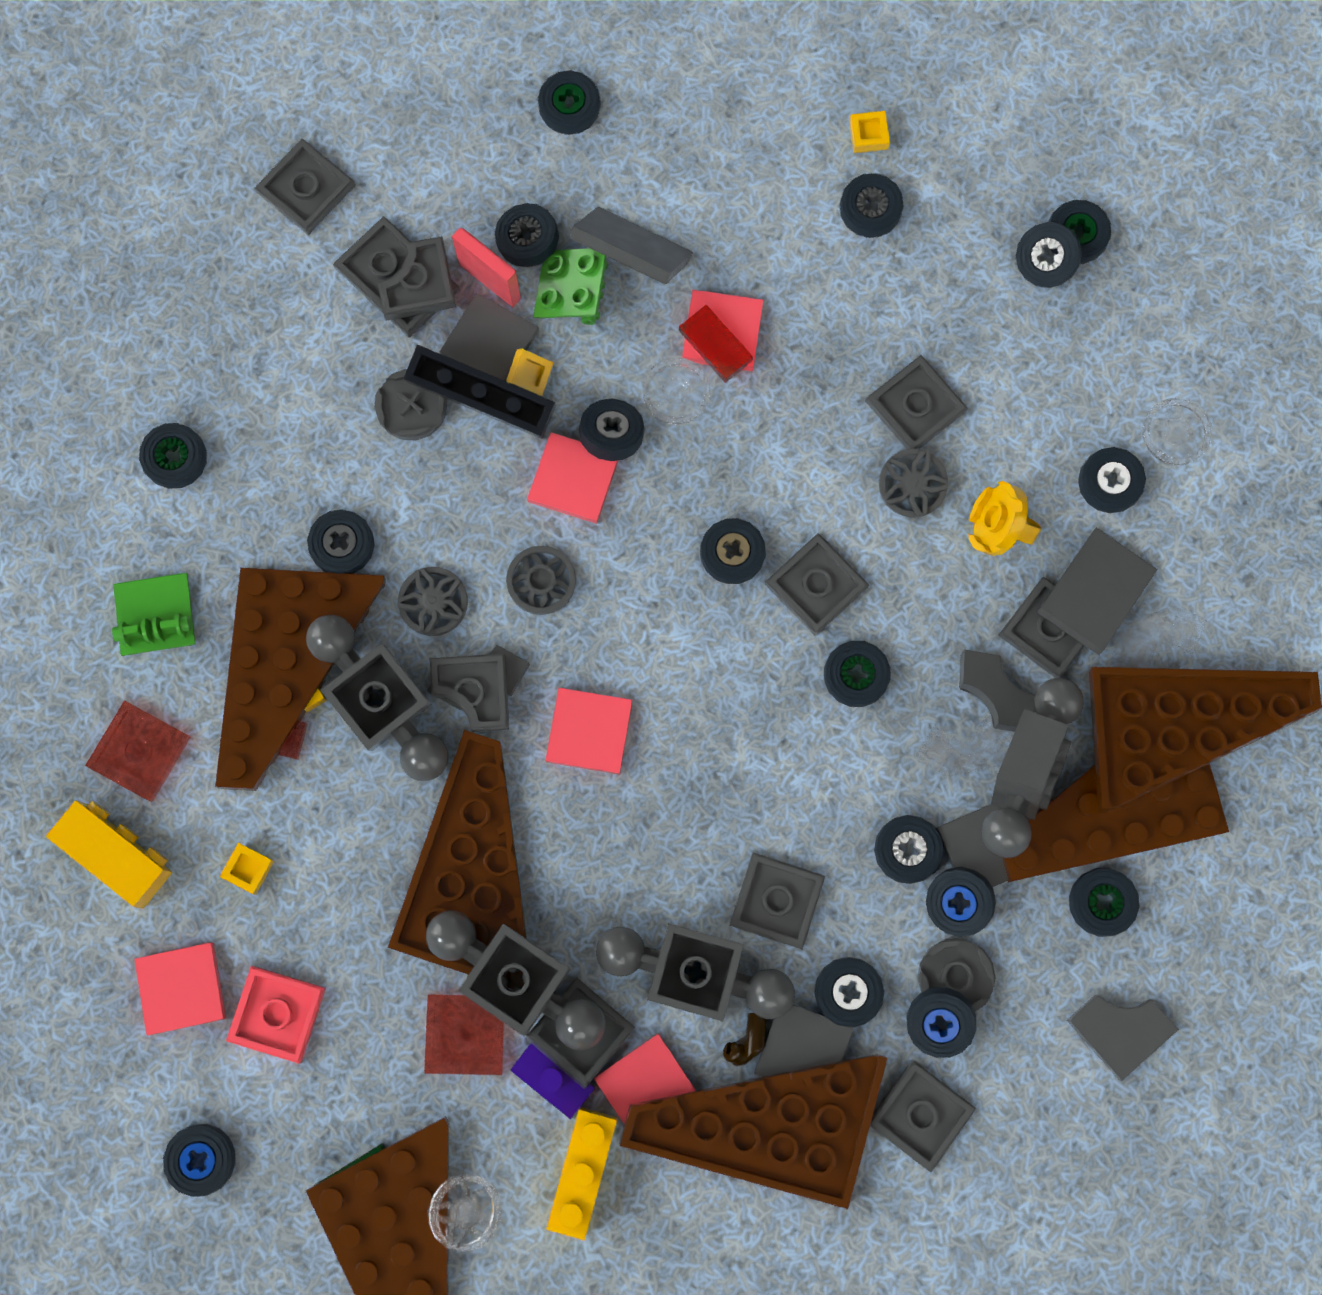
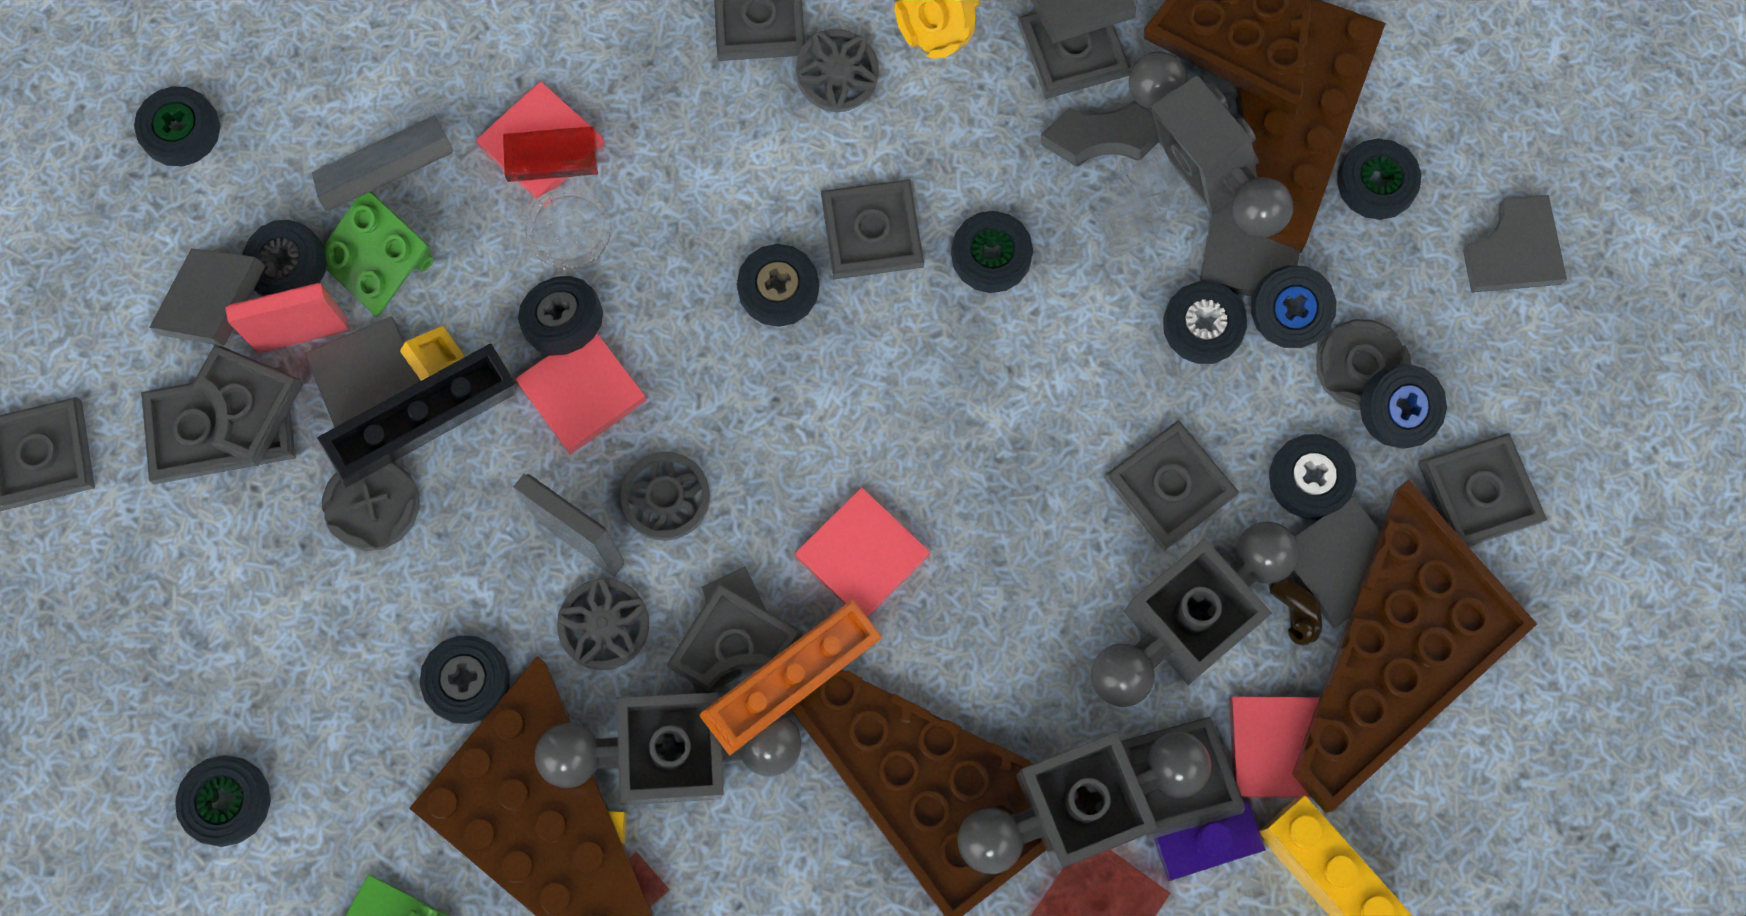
camera: 55 degrees left, 5 degrees down
(470, 205) = (201, 292): none -> dark grey tile
(470, 536) = (569, 524): none -> dark grey tile
(472, 740) = (790, 677): none -> orange tile

